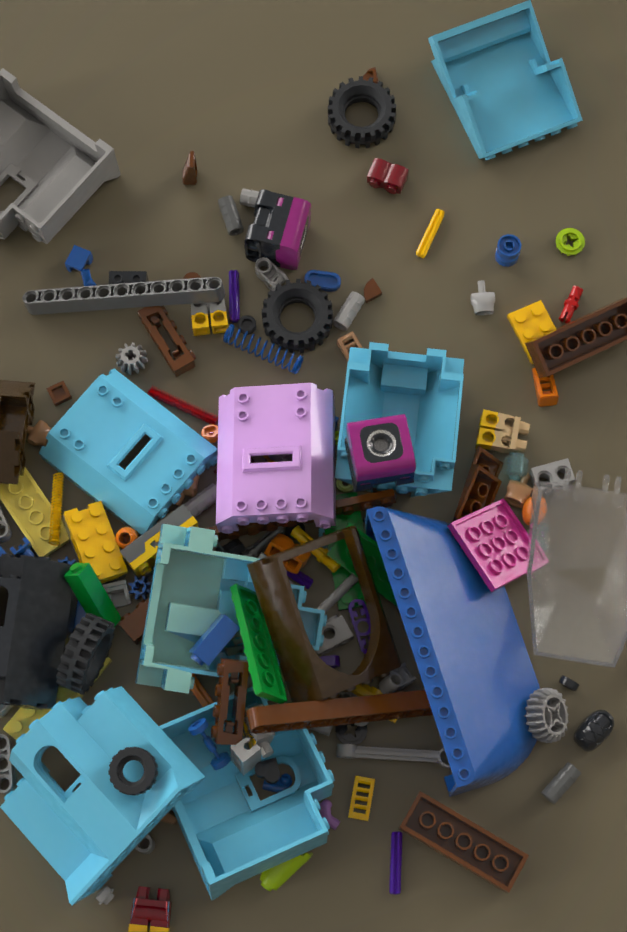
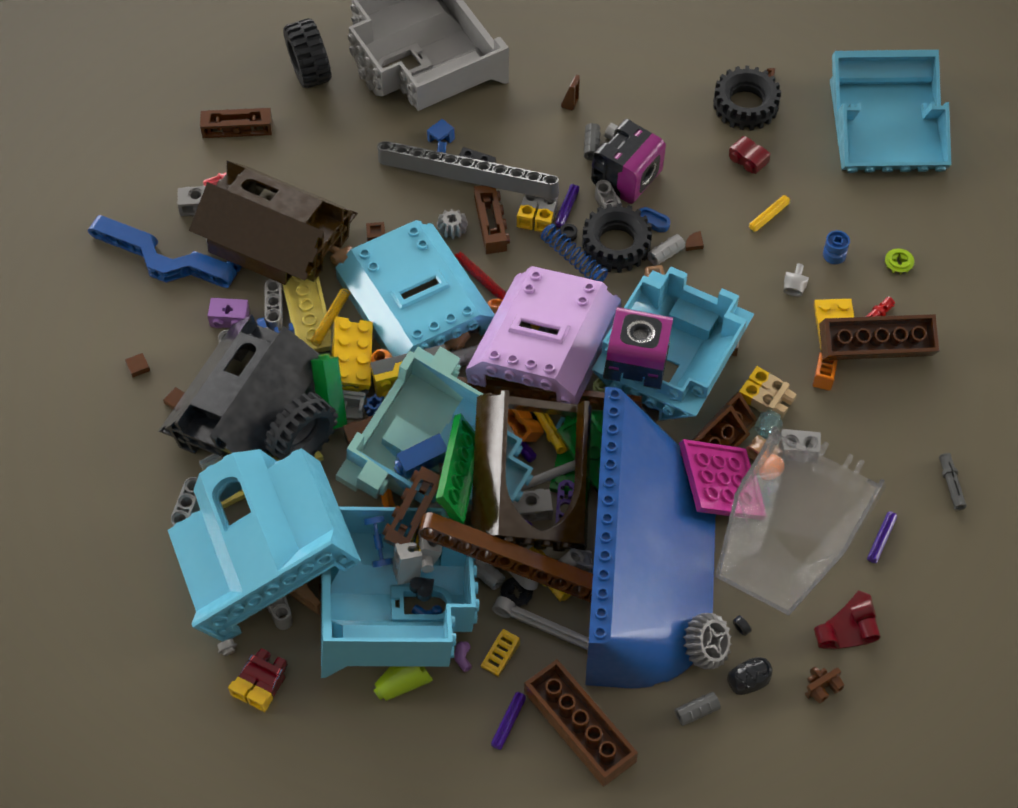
camera: 20 degrees right, 15 degrees down
(118, 763) = (292, 504): black tyre -> none

